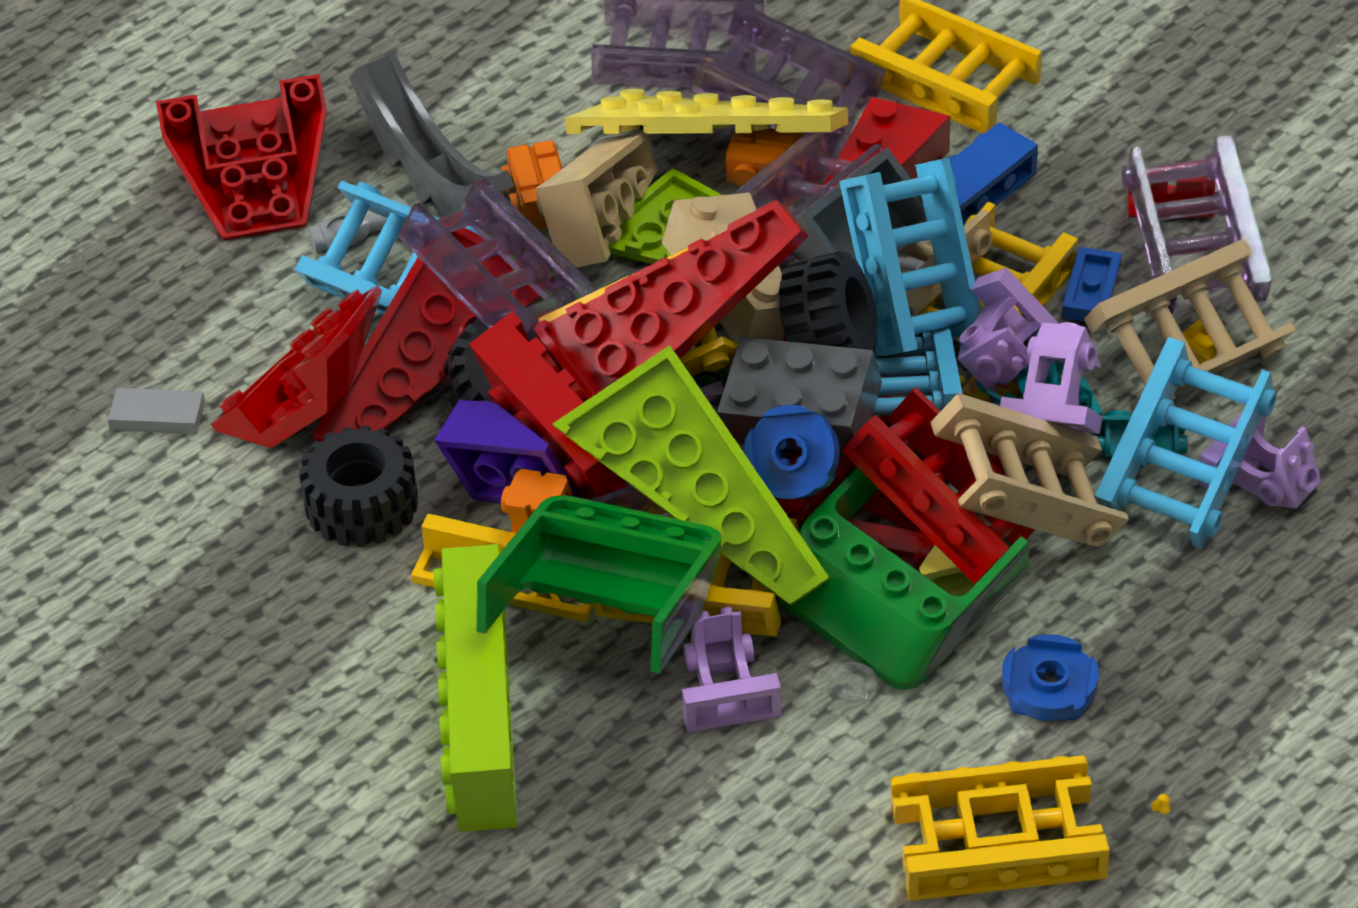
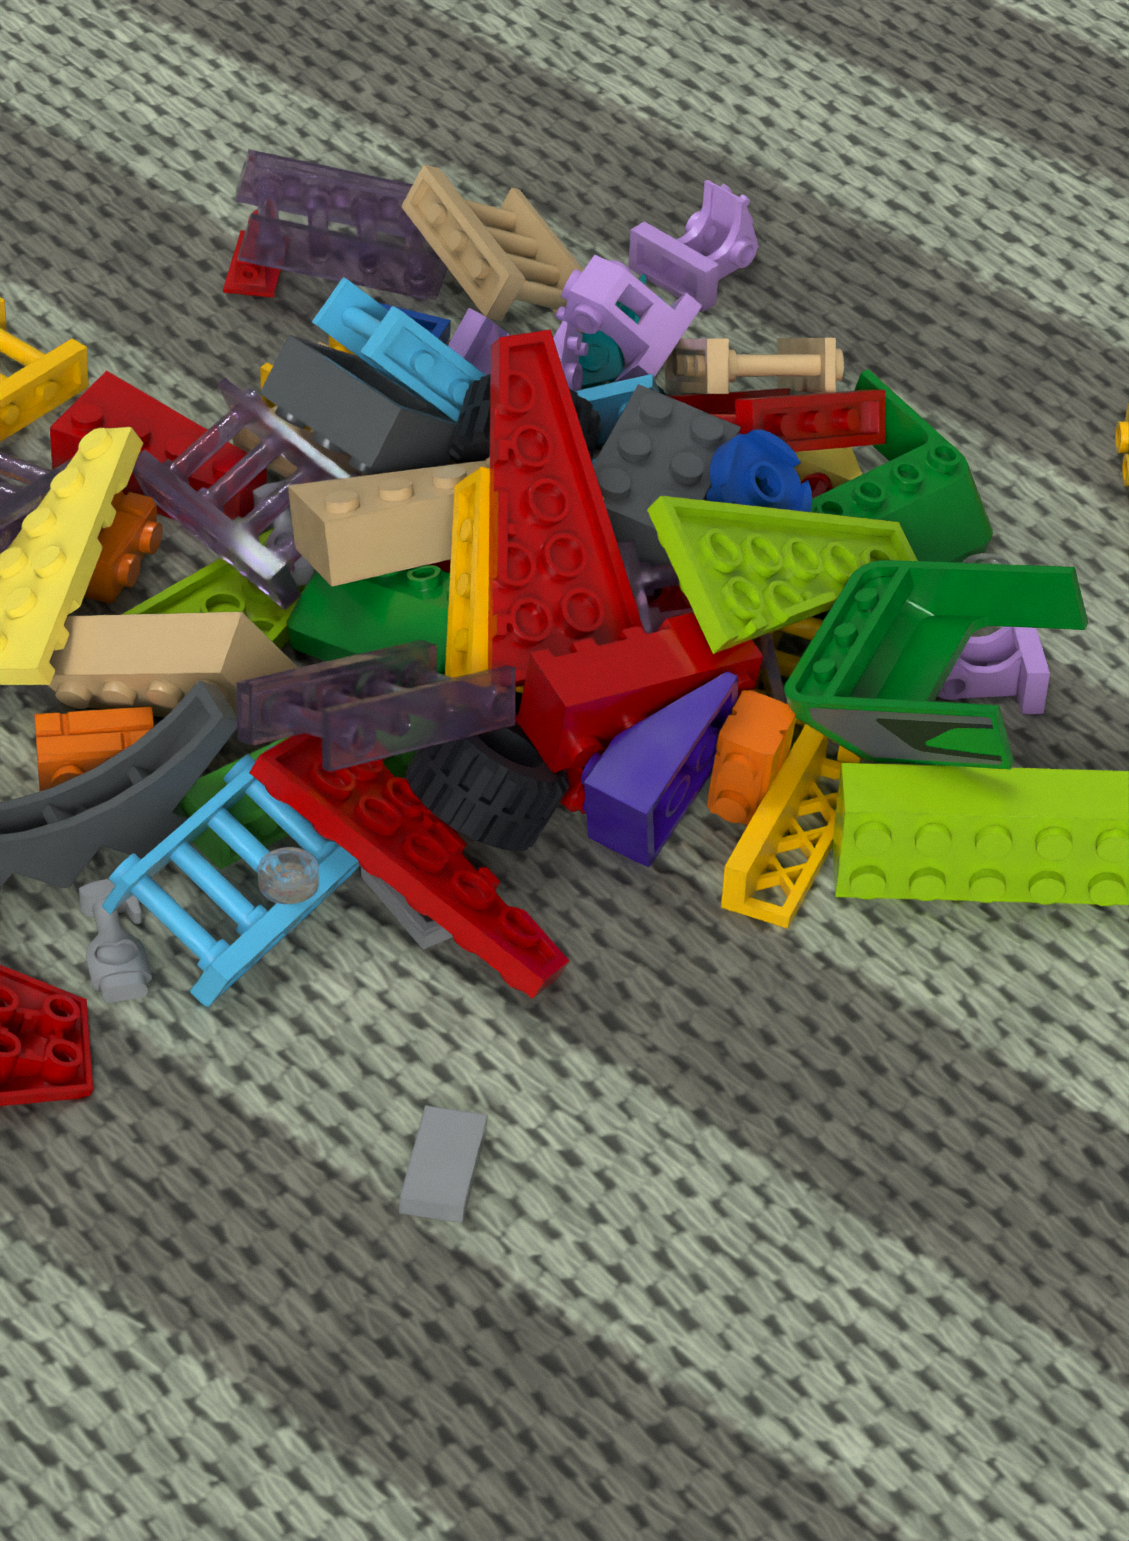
camera: 90 degrees left, 5 degrees down
(306, 378) = (437, 960): red wedge -> none
(365, 510) = (649, 941): black tyre -> none
(385, 273) = (288, 875): none -> clear tile
(992, 168) = (180, 372): blue brick -> none
(1050, 700) = (1010, 450): blue plate -> none
(1157, 409) = (719, 239): medium azure fence -> none

